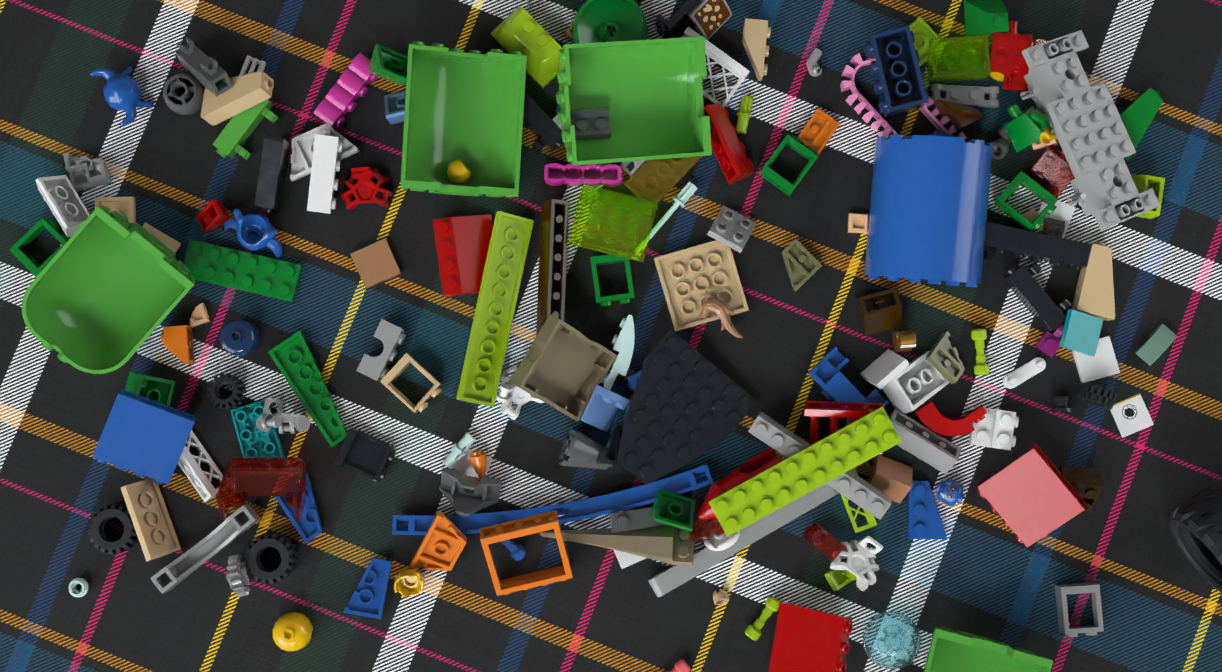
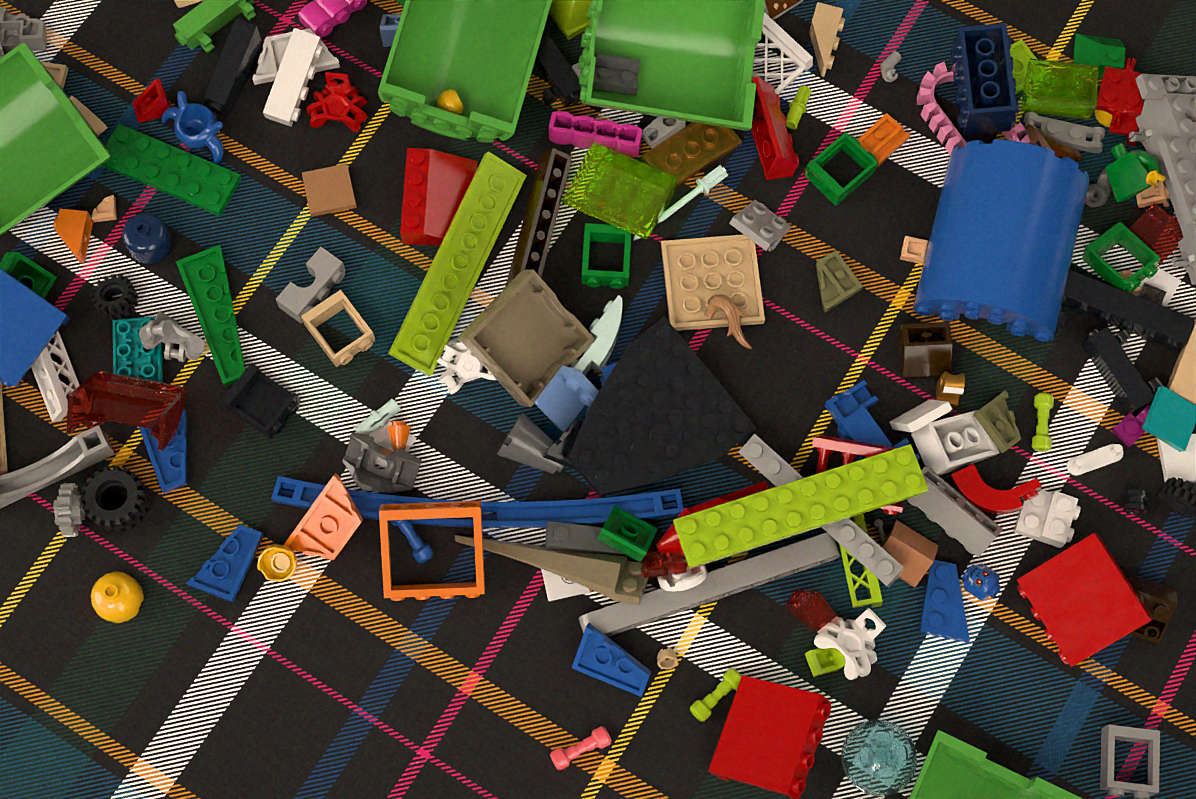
camera: 10 degrees right, 15 degrees down
(678, 611) = (609, 662): none -> blue wing

